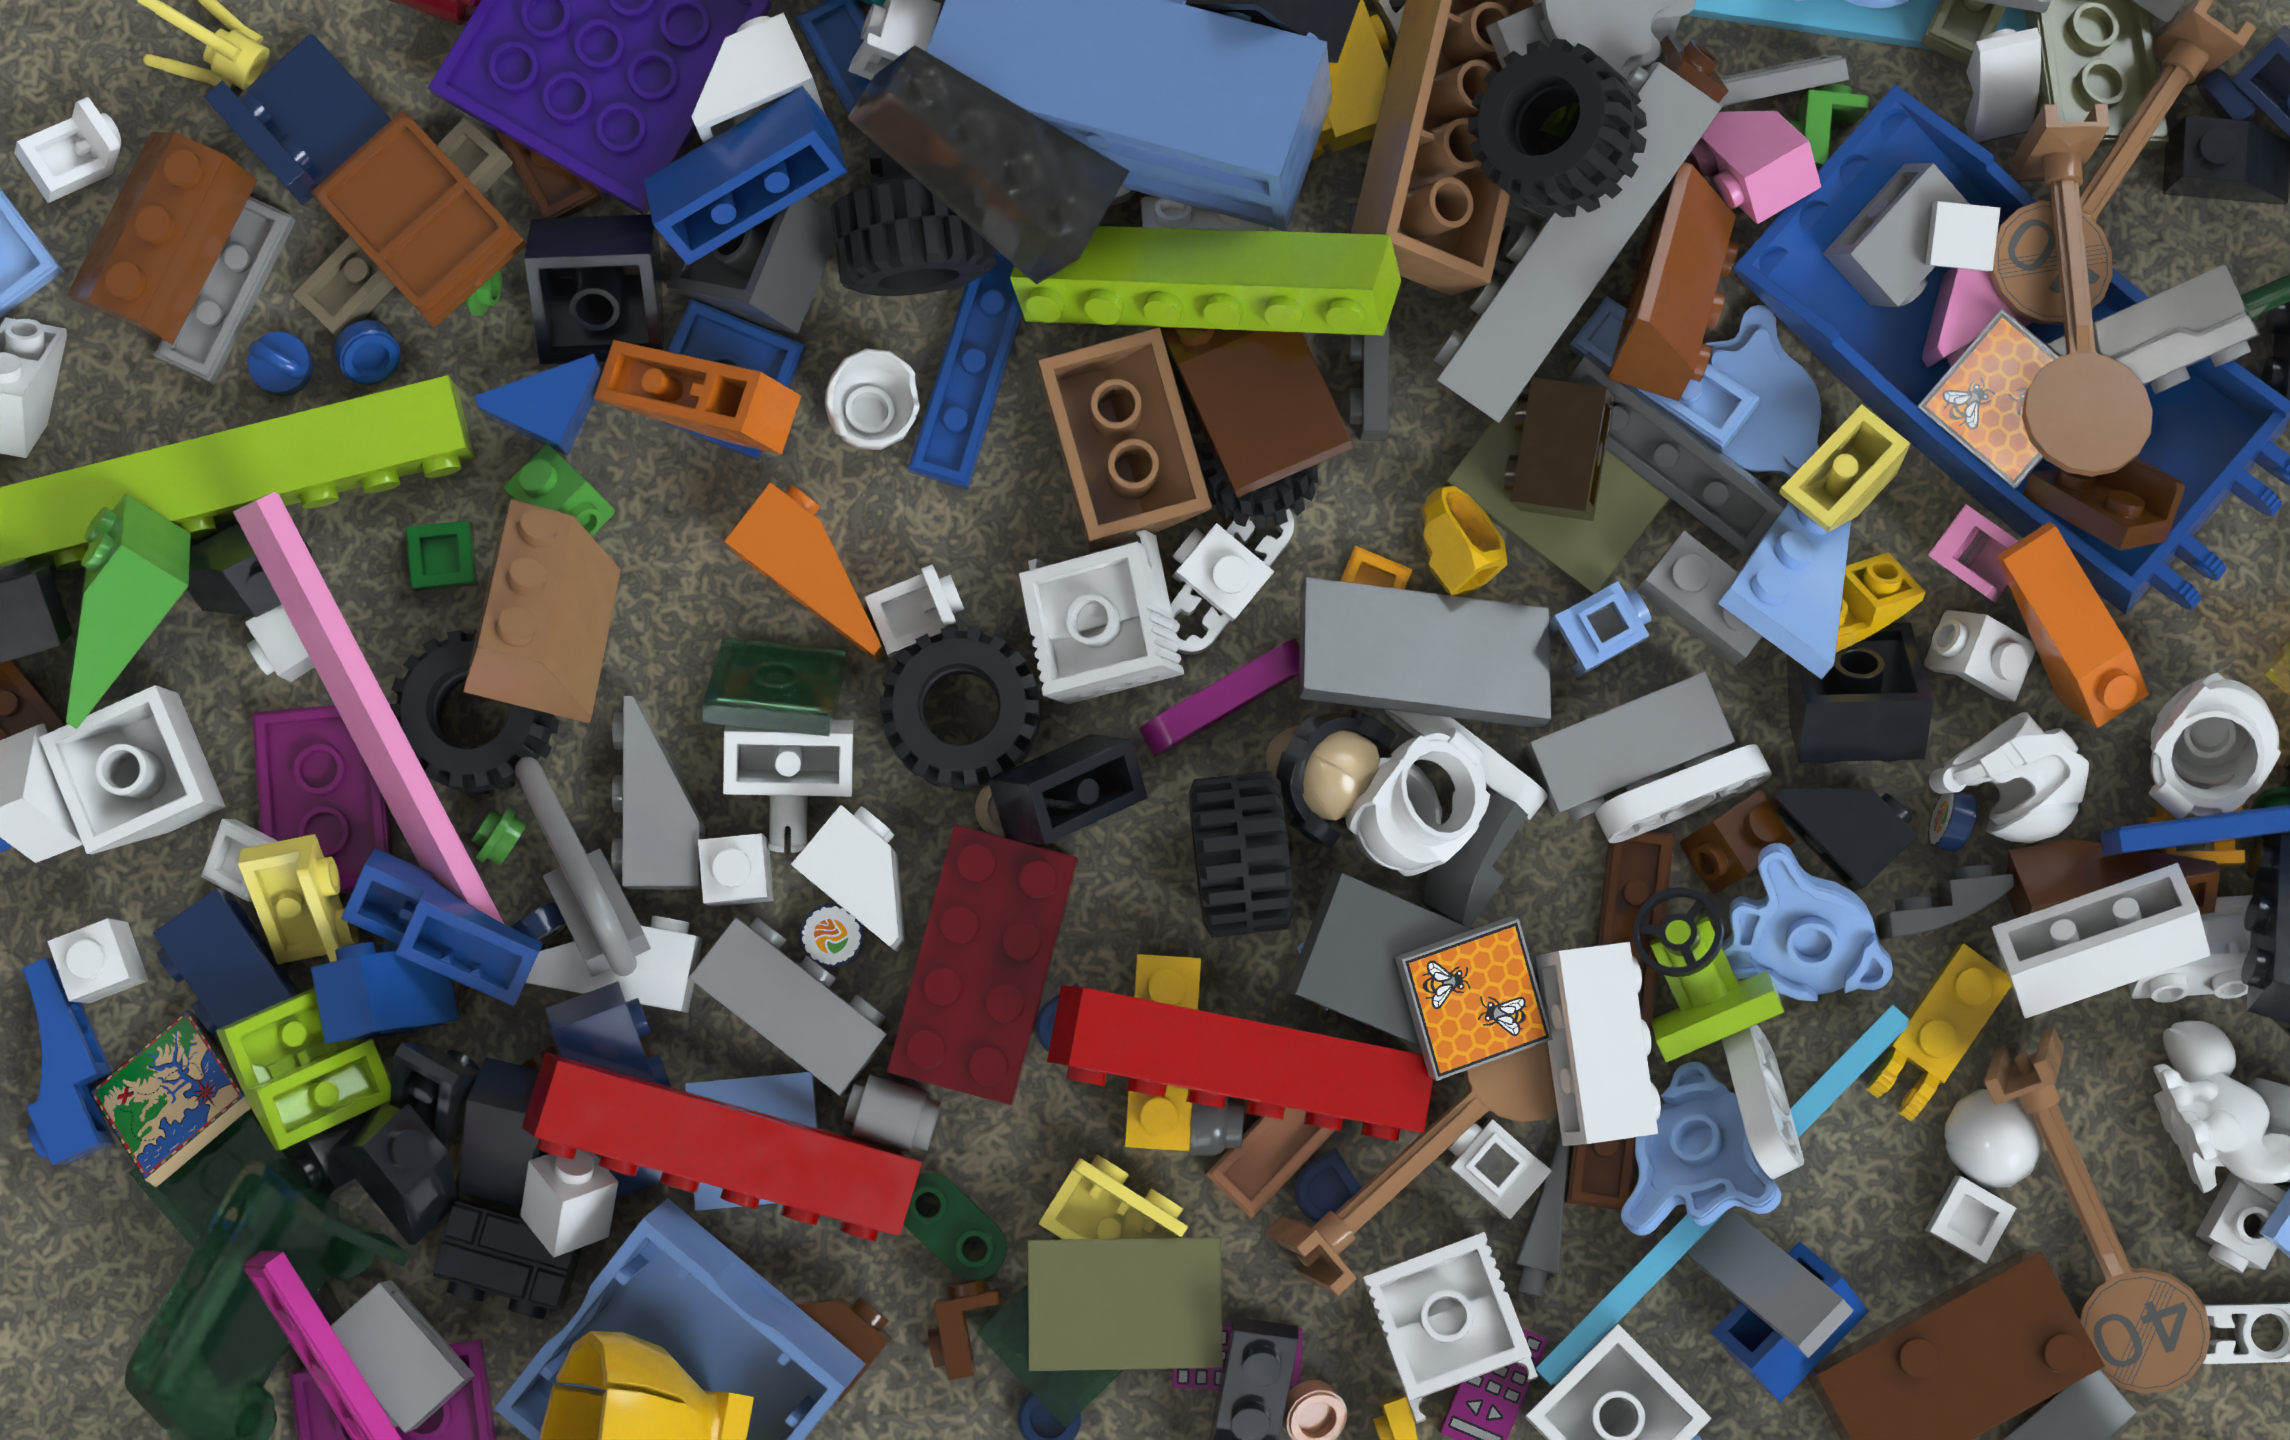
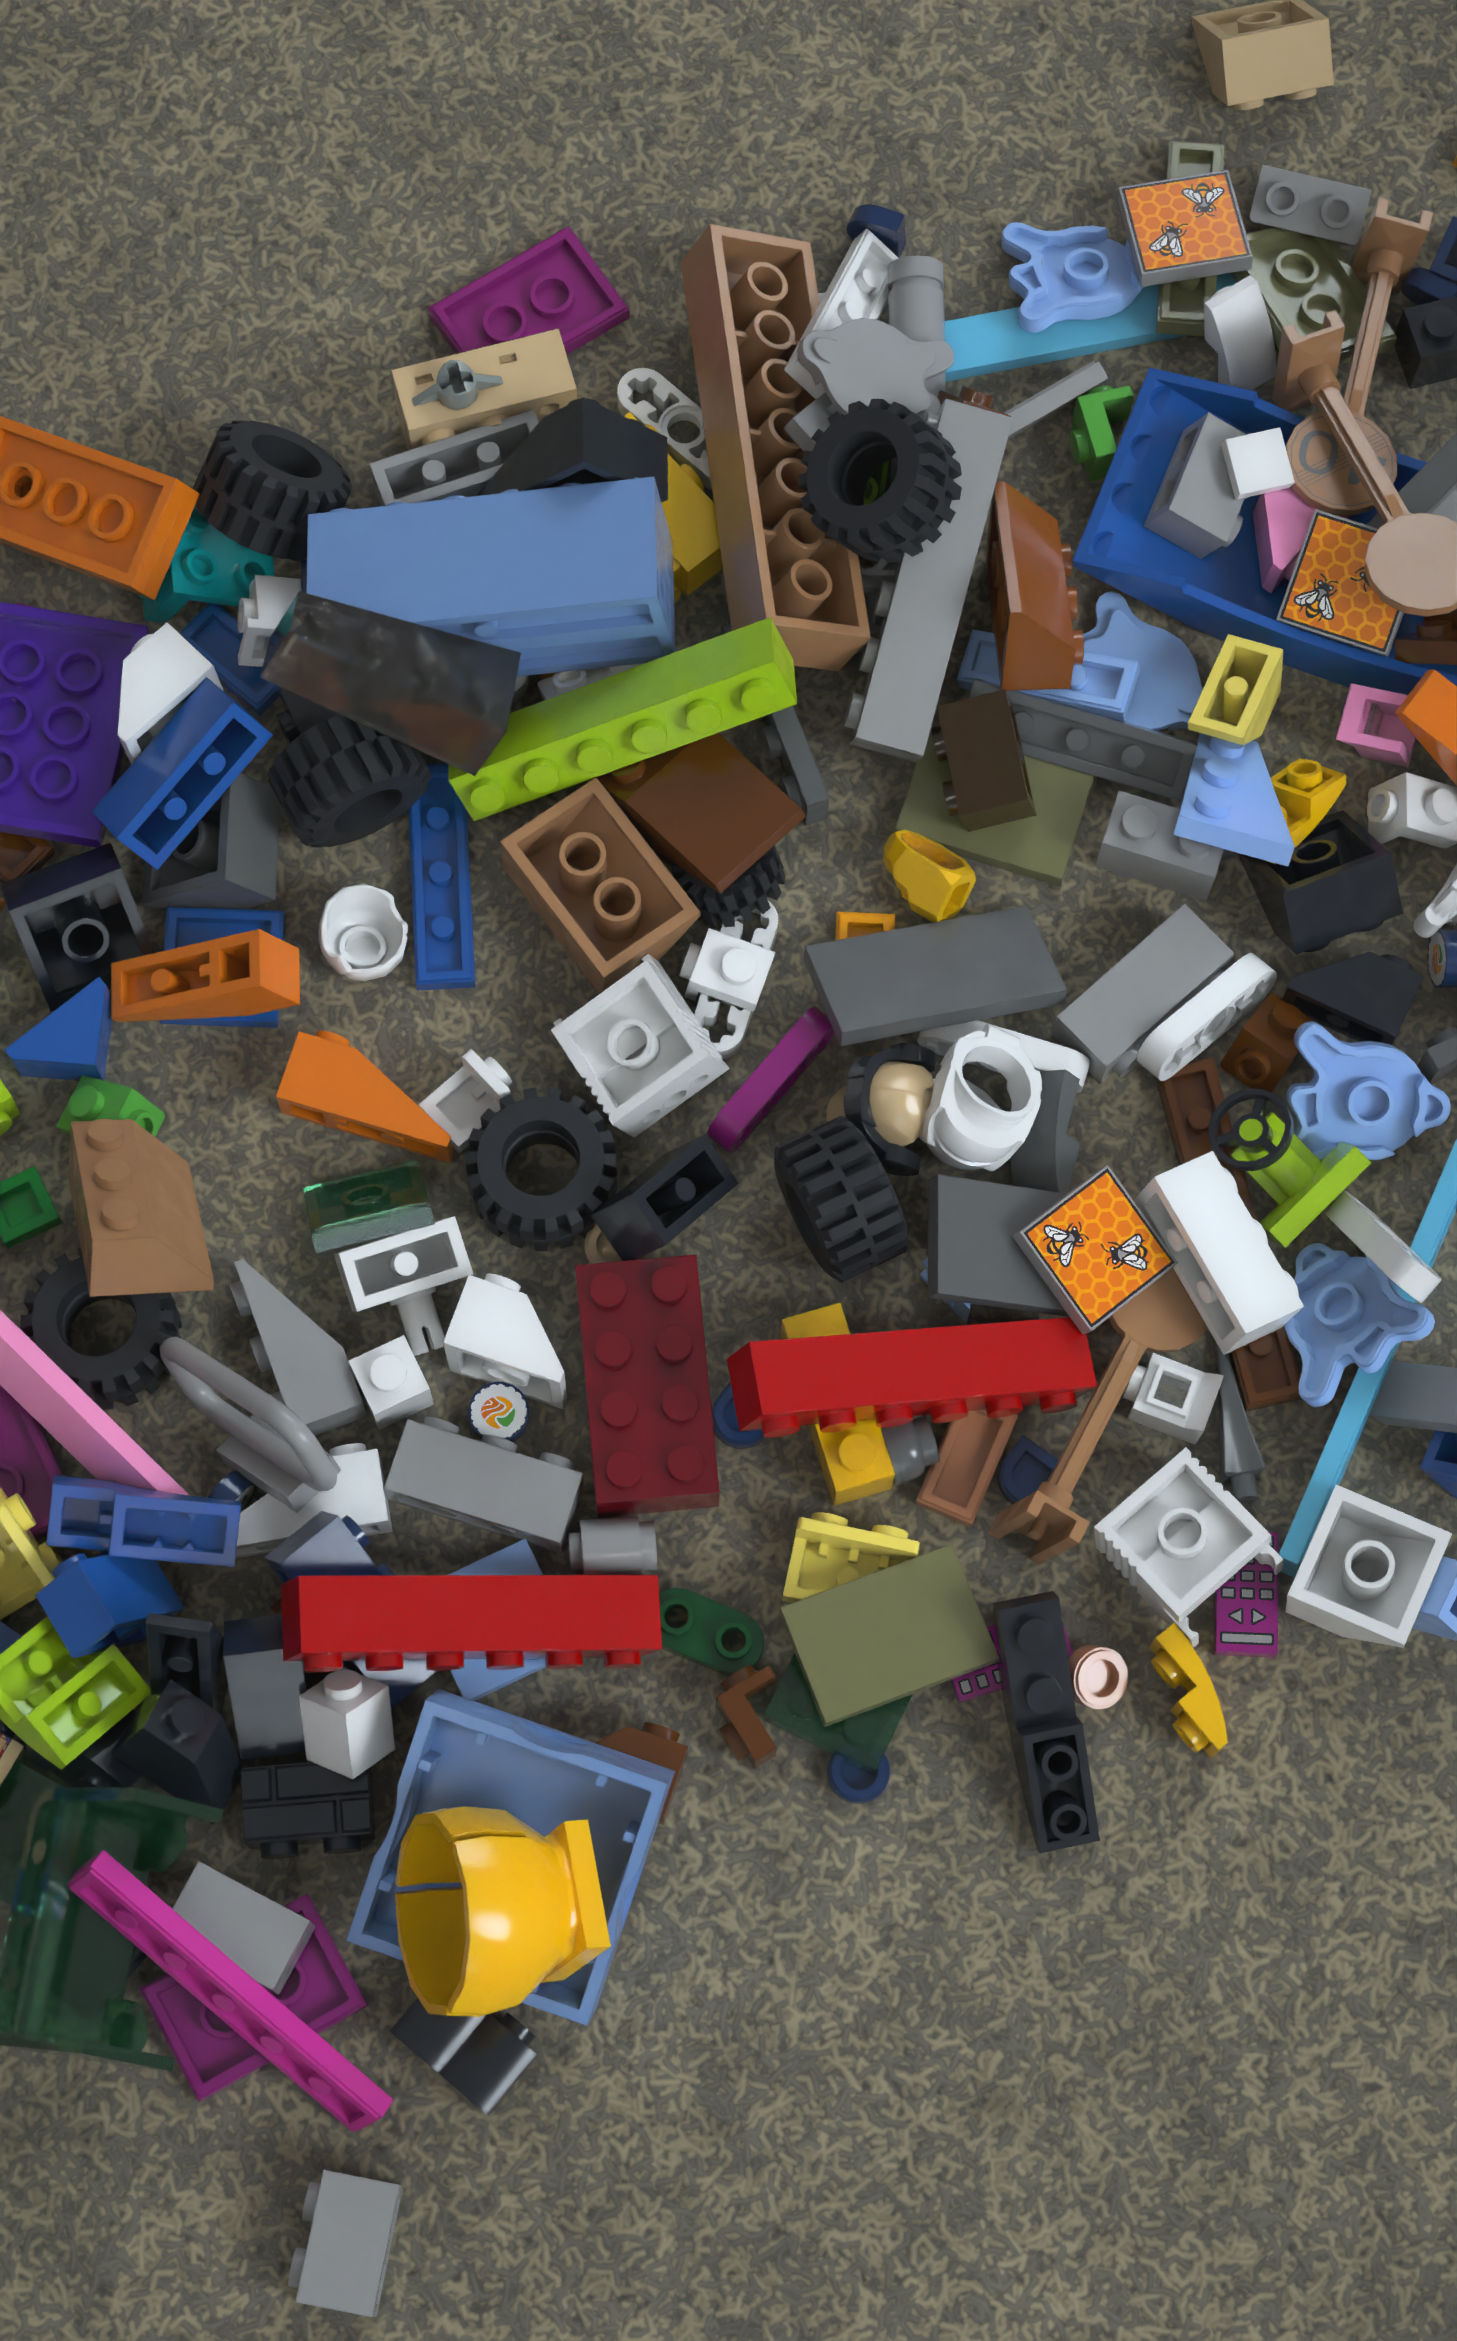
camera: 20 degrees left, 10 degrees down
(498, 835) = (161, 1431): bright green plate -> none
(1602, 626) = (1080, 902): light blue window -> none
(1756, 162) = (1059, 466): bright pink slope -> none

